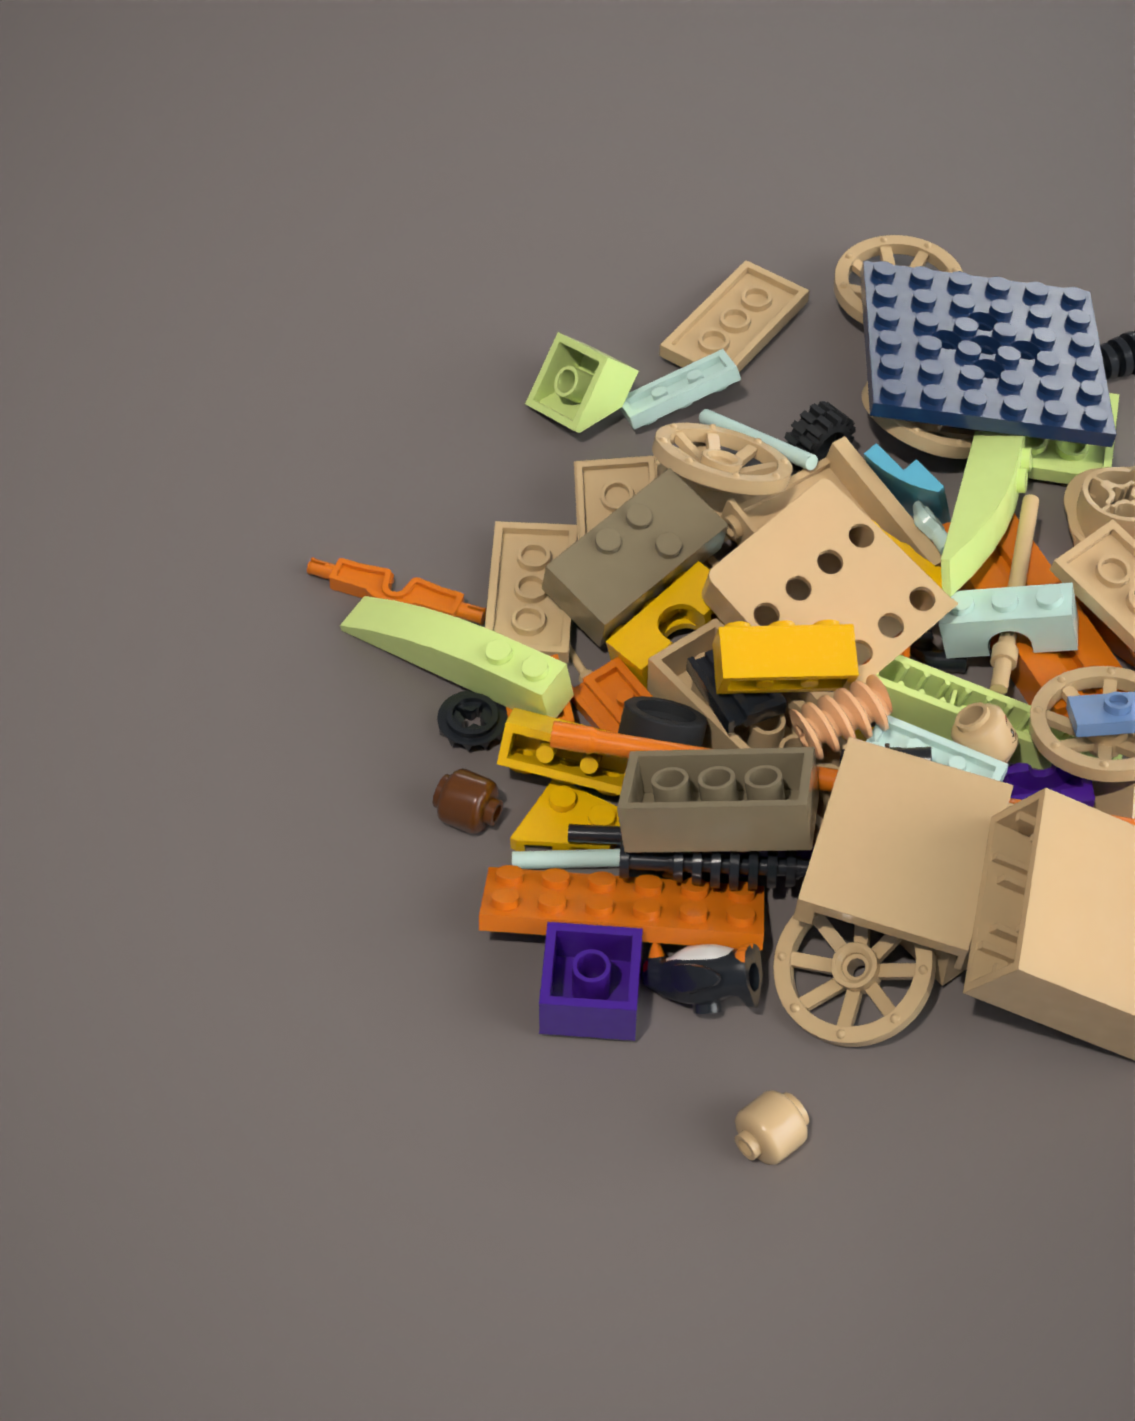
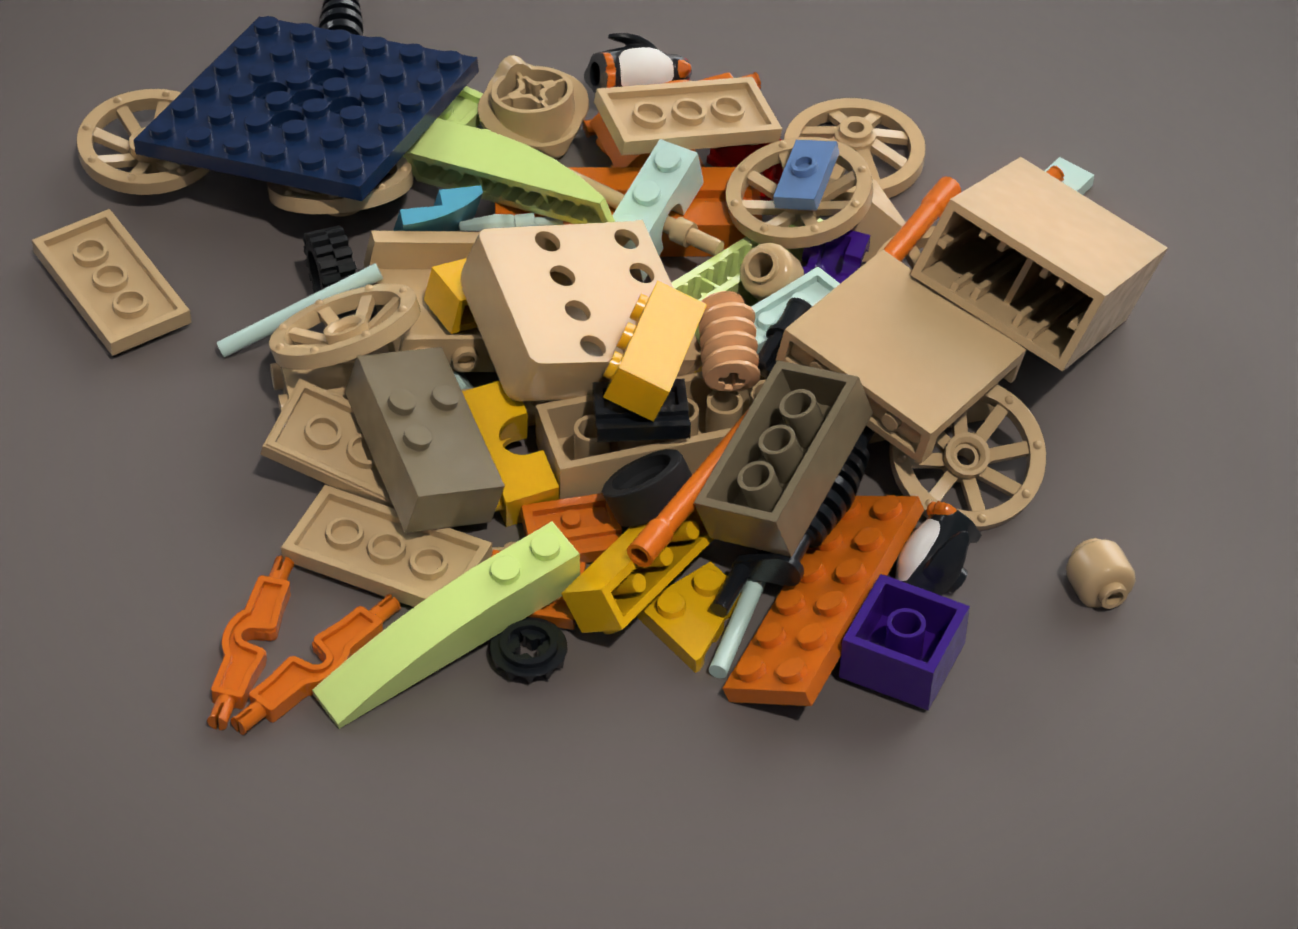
camera: 70 degrees left, 5 degrees down
(423, 540) = (242, 660): none -> orange piece
(467, 801) = (639, 677): reddish brown head -> none
(580, 384) = (133, 421): yellowish green slope -> none
(680, 389) = (187, 348): light aqua plate -> none

